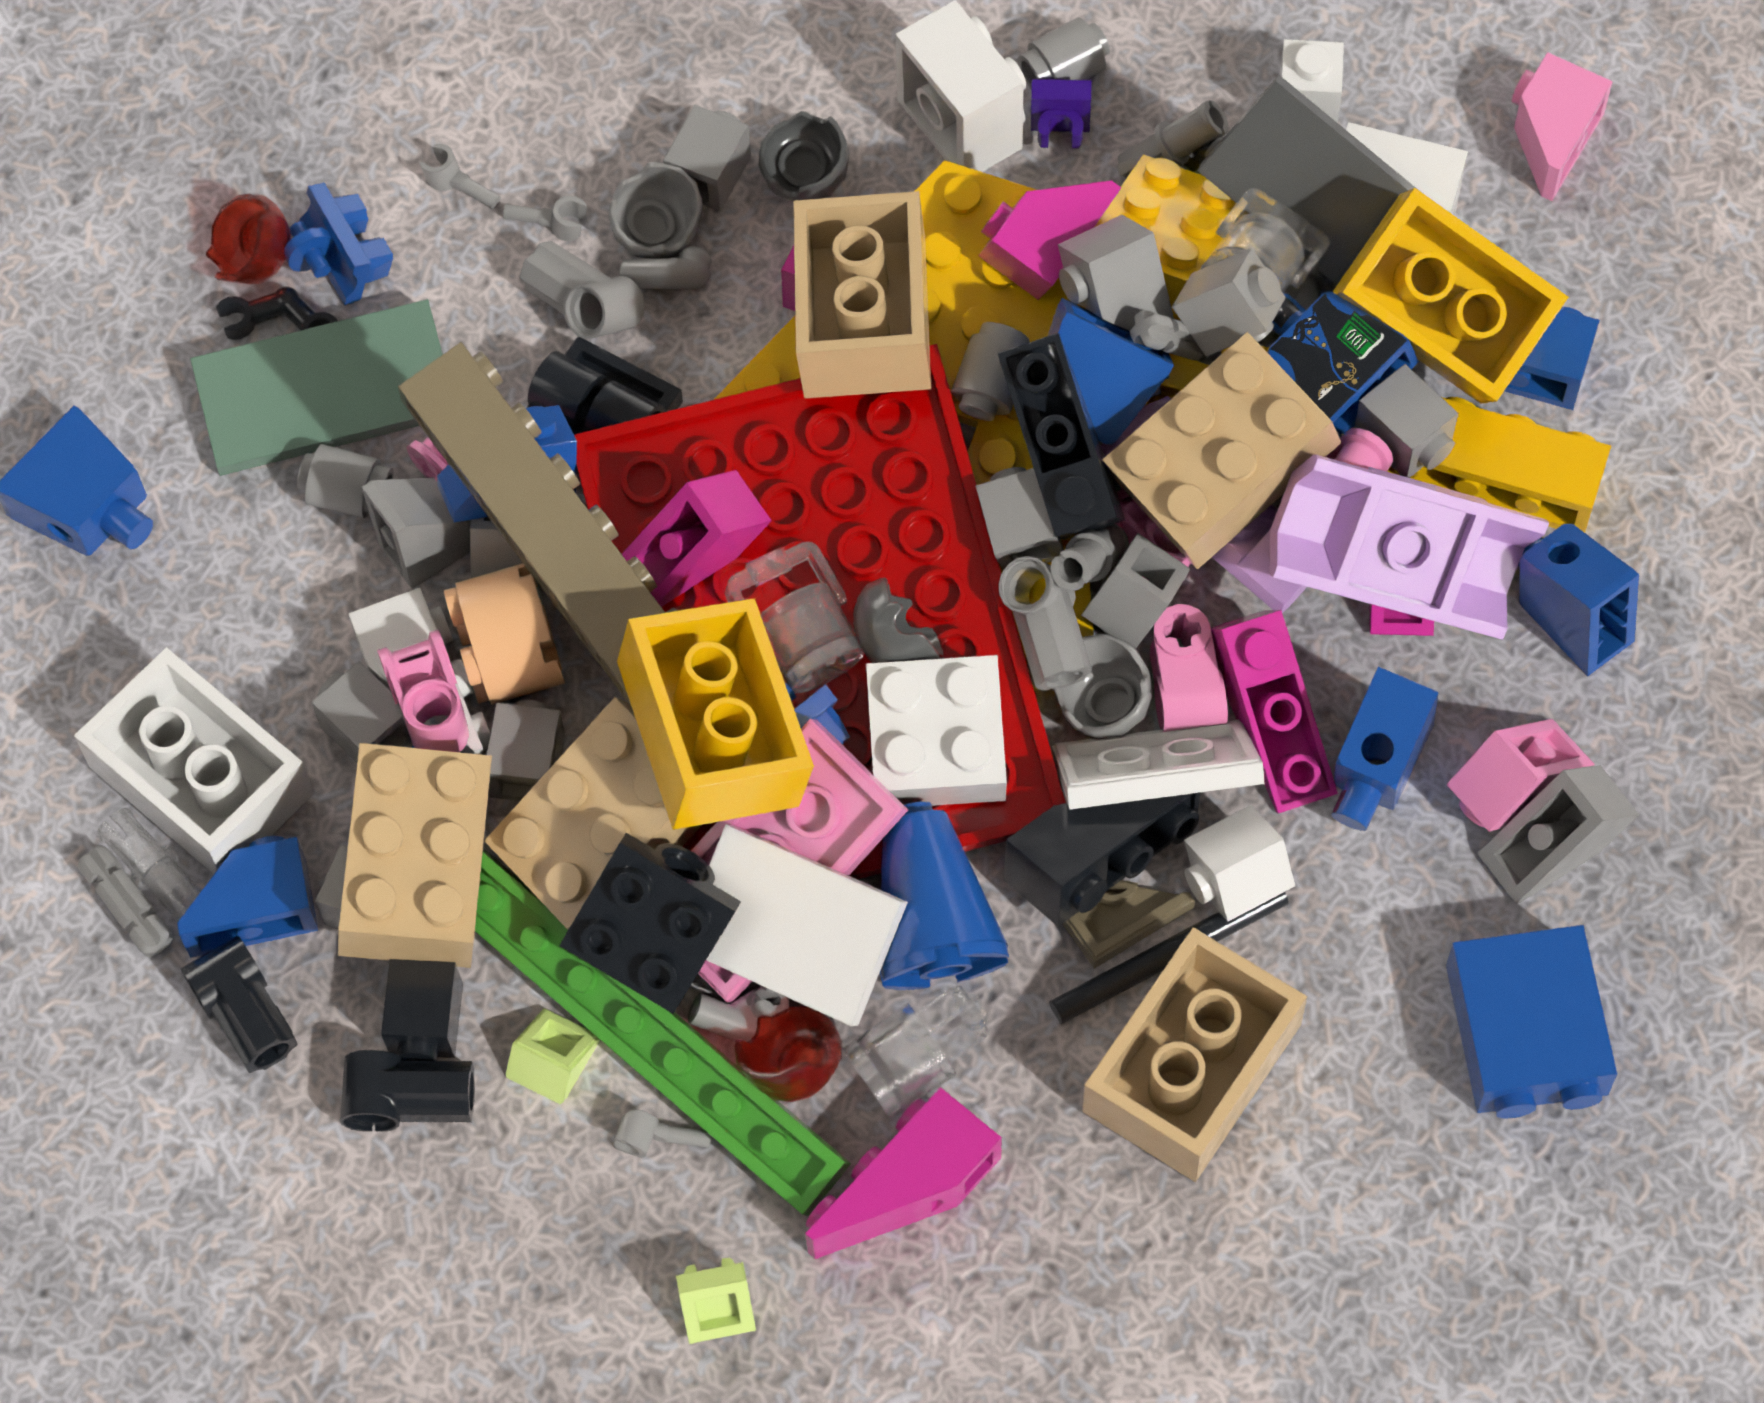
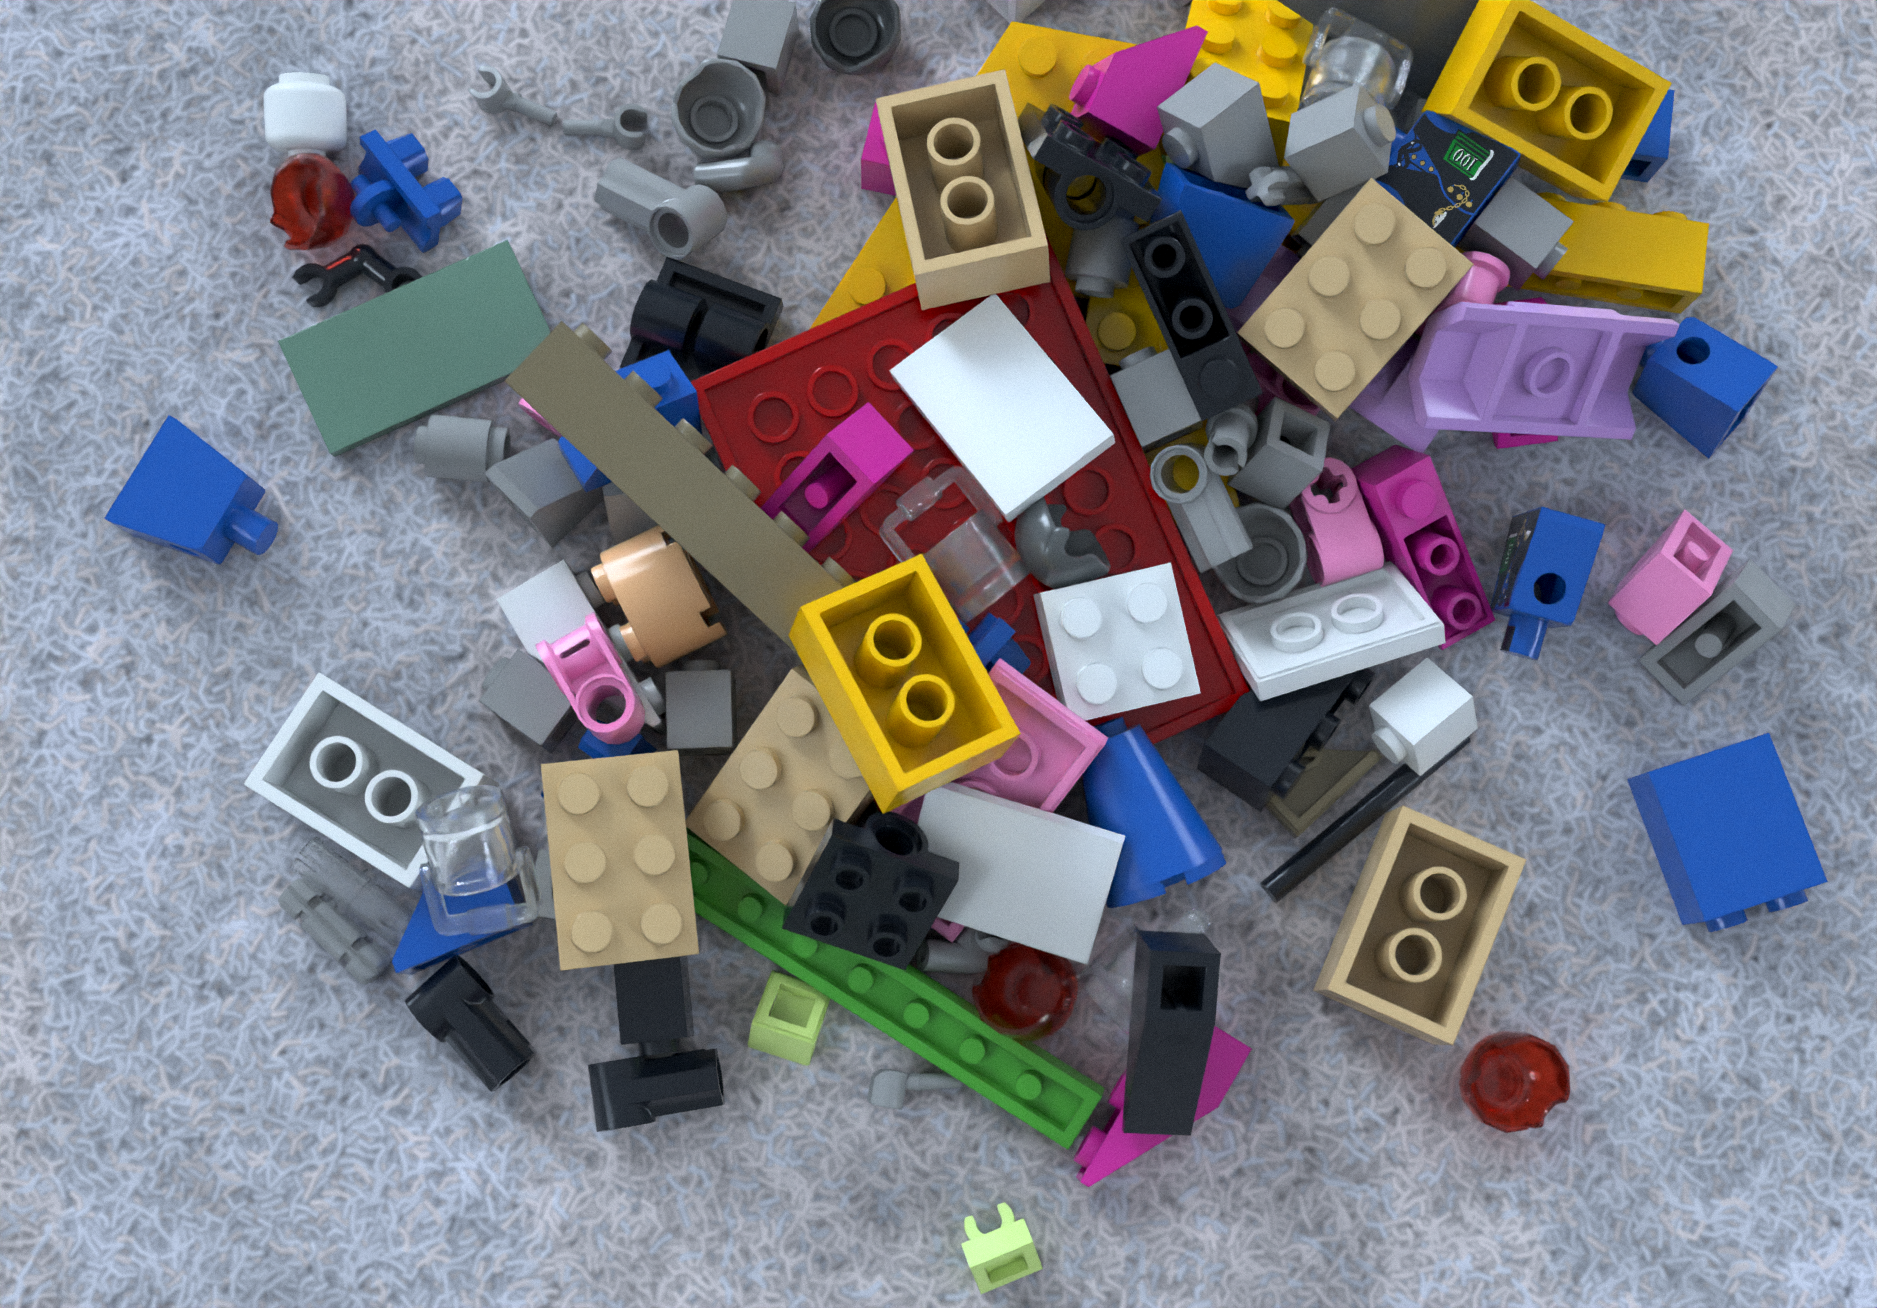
camera: 15 degrees left, 15 degrees up
(260, 161) = (305, 115): none -> white head
(277, 813) = (471, 852): none -> clear piece
(863, 494) = (1002, 407): none -> white tile
(911, 1090) = (1169, 1030): none -> black slope
(963, 265) = (1104, 171): none -> black plate
(1265, 1219) = (1513, 1080): none -> clear red hair

